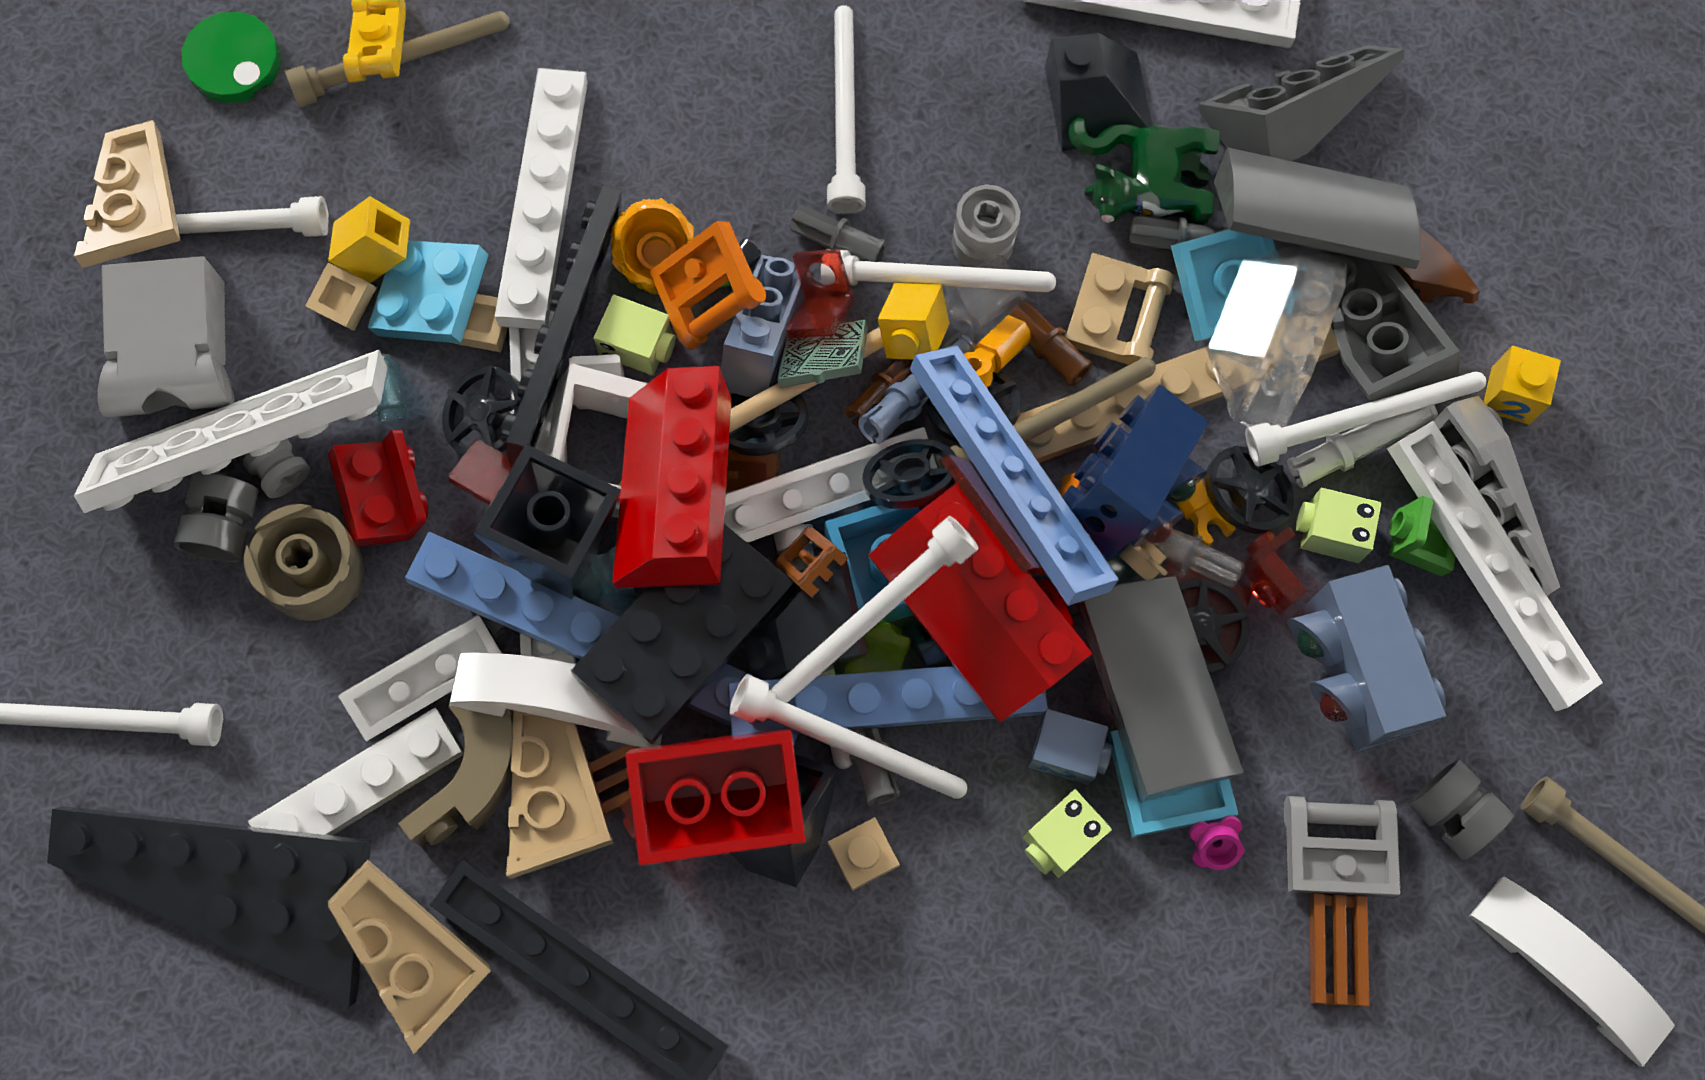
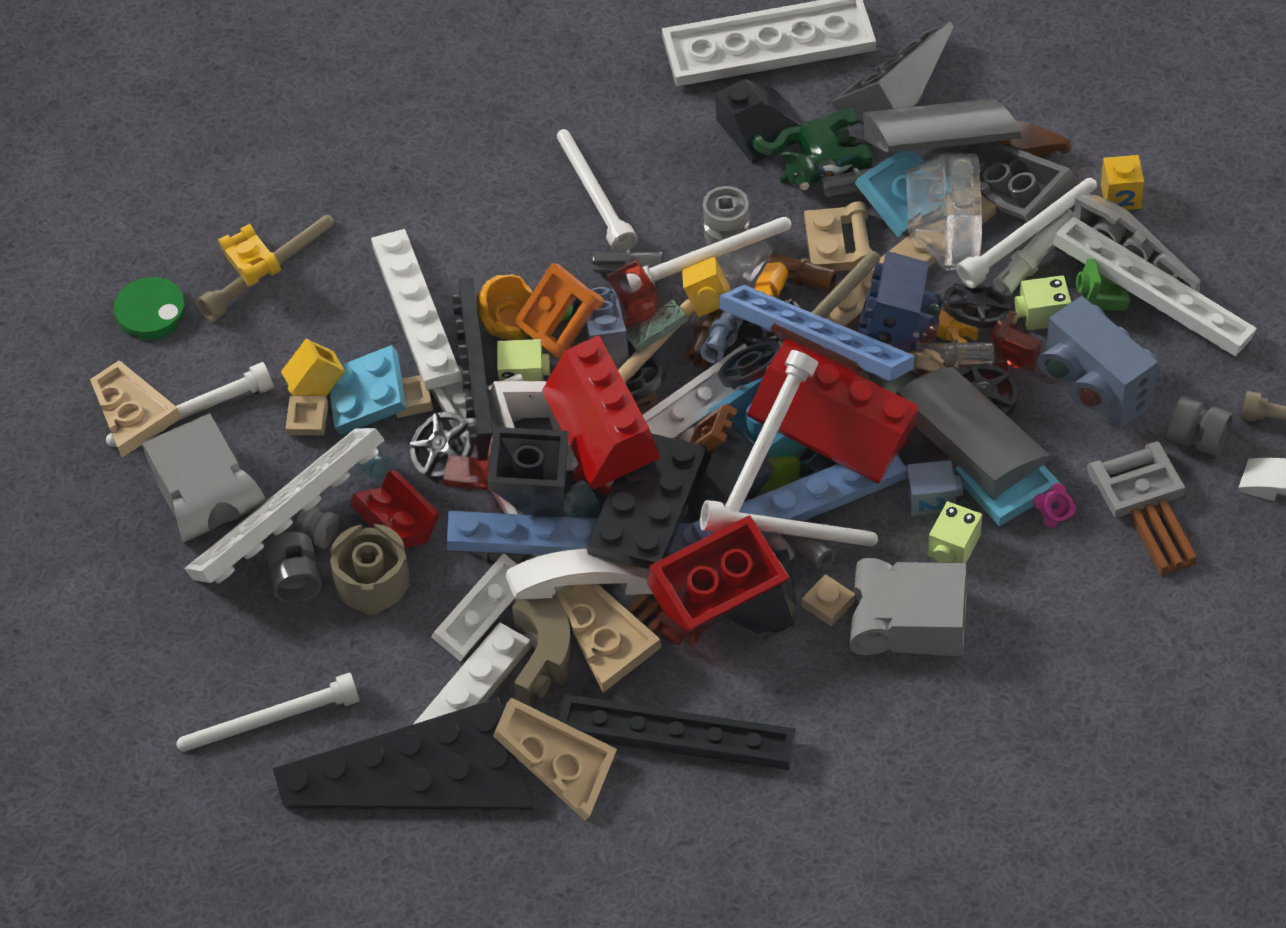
camera: 15 degrees left, 20 degrees down
(956, 924) = (909, 608): none -> light grey piece

